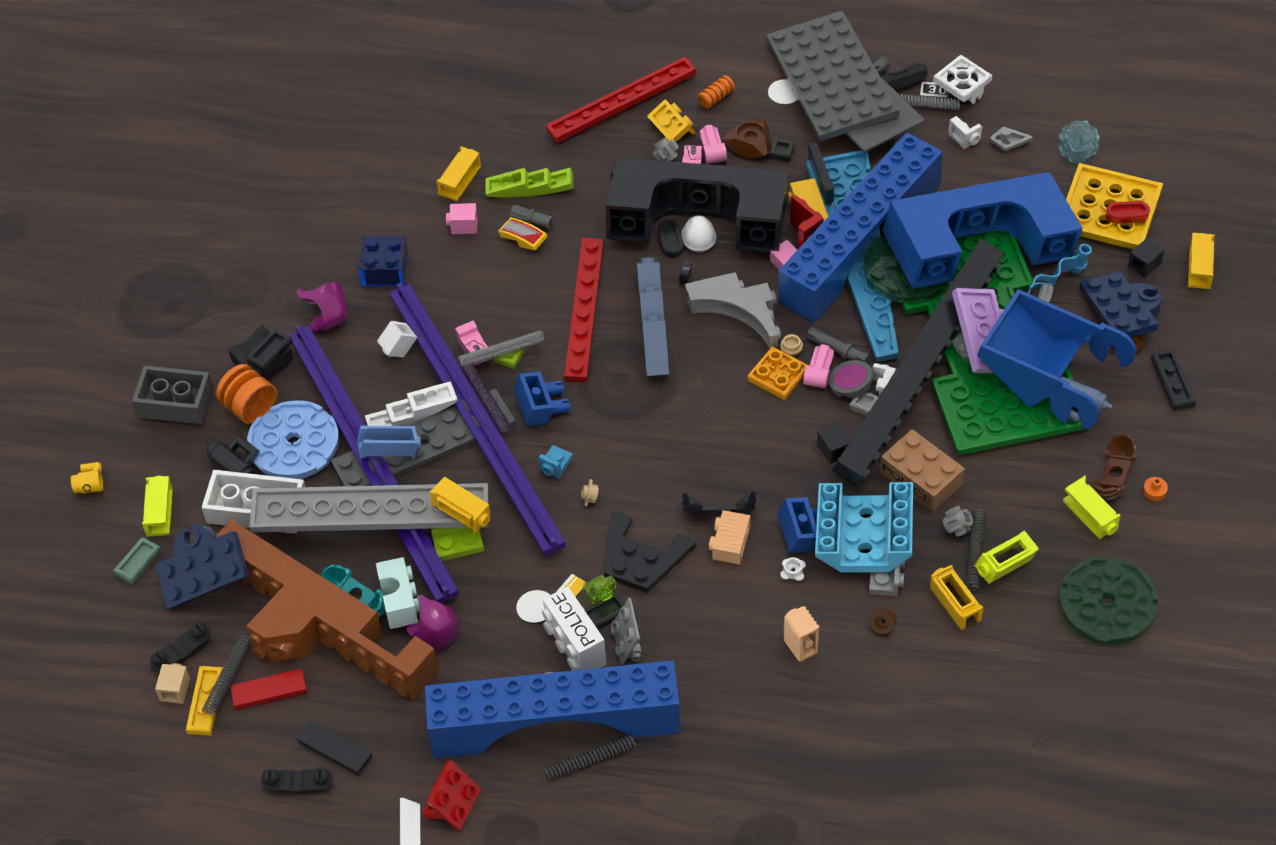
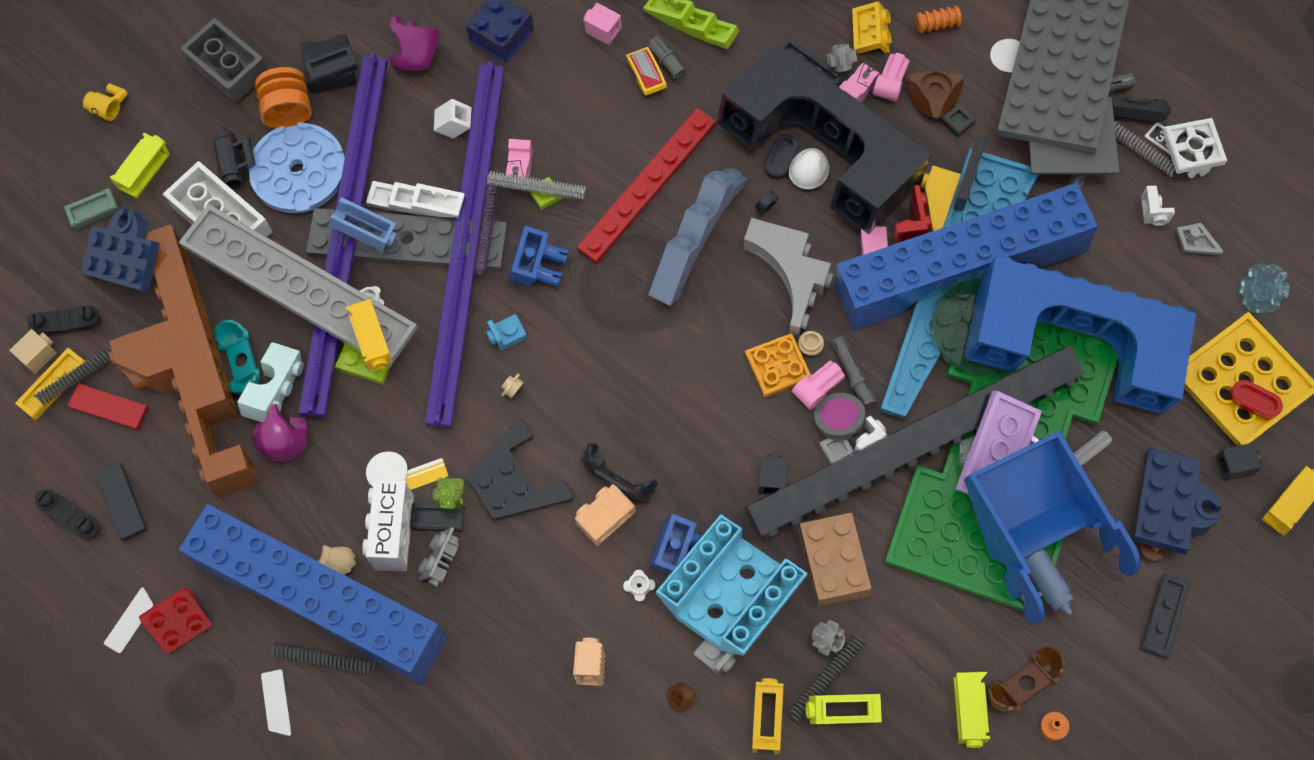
camera: 35 degrees right, 15 degrees up
(575, 811) = (276, 702): none -> white sticker
(1075, 264) = (1160, 425): dark azure flag -> none

